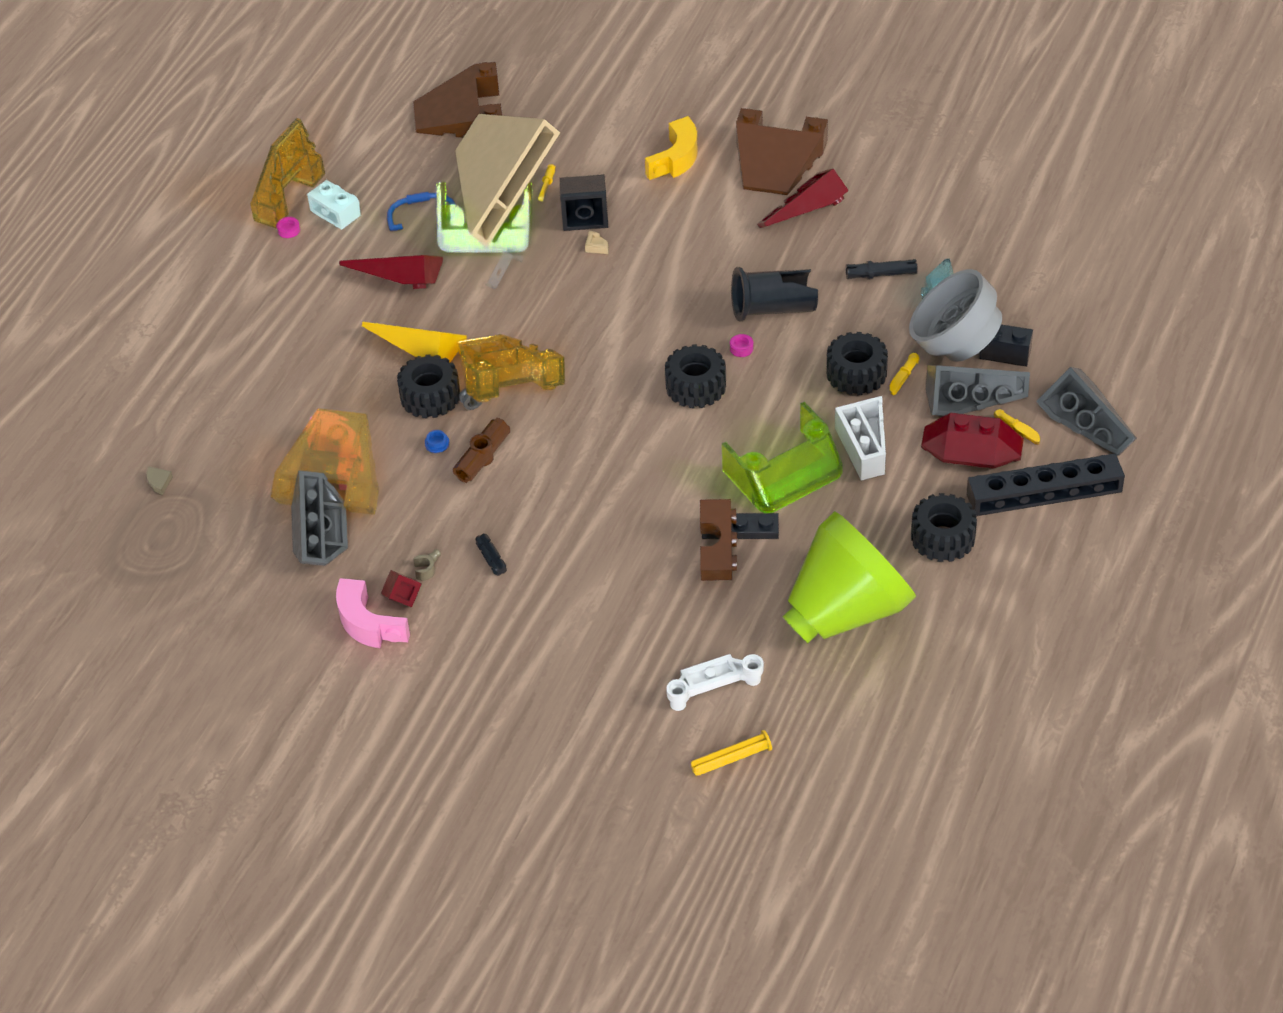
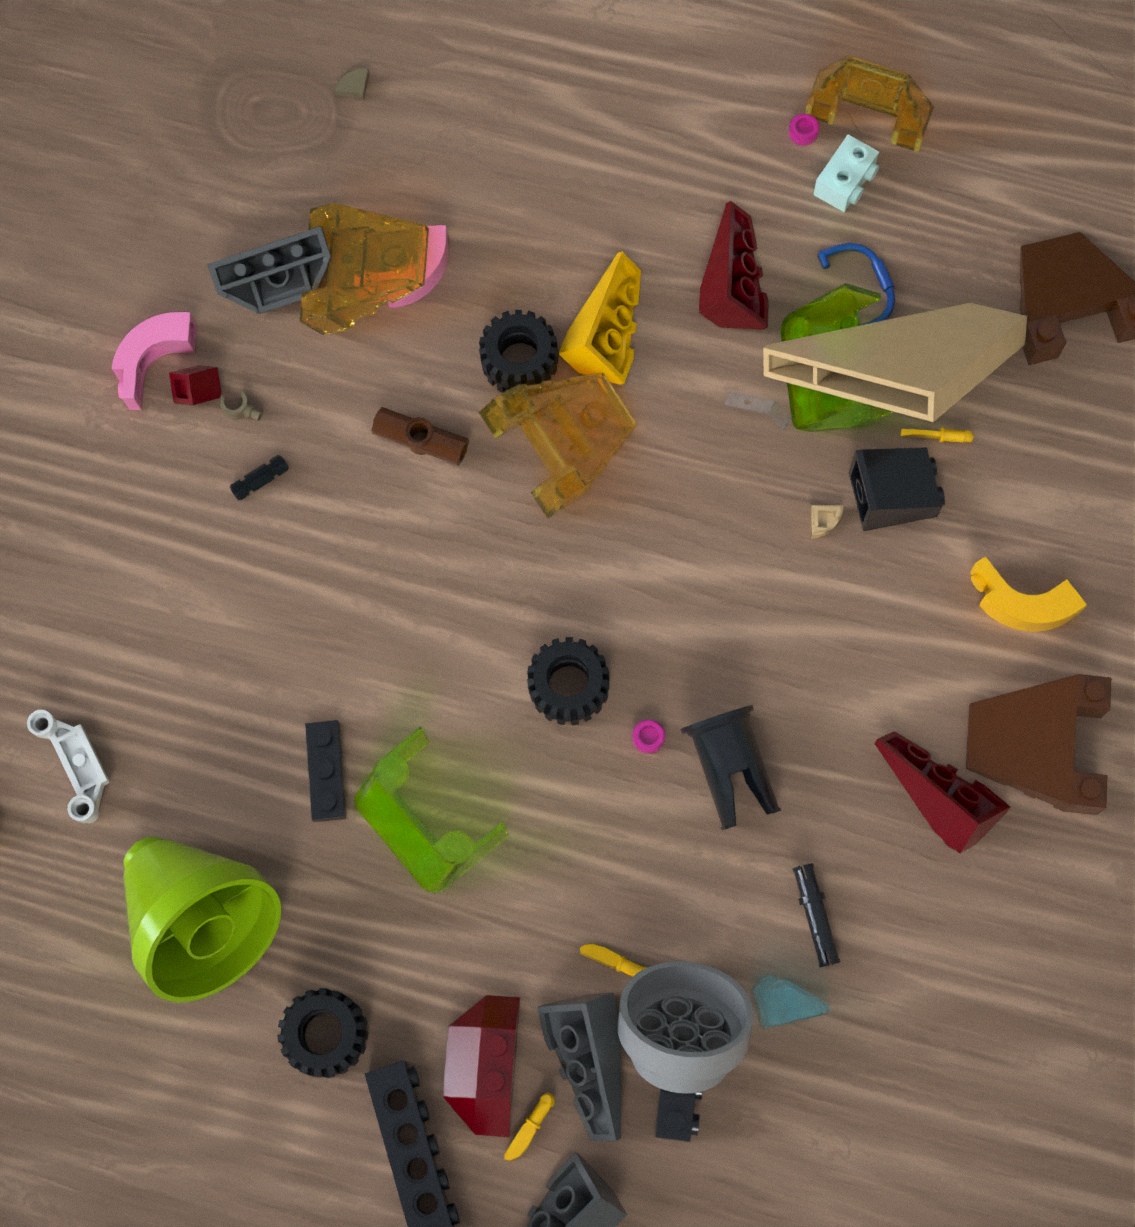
camera: 85 degrees right, 25 degrees up
(436, 441) = (436, 382): blue plate -> none
(717, 560) = (305, 739): reddish brown arch -> none
(856, 363) = (609, 865): black tyre -> none
(863, 435) = (473, 916): white wedge -> none

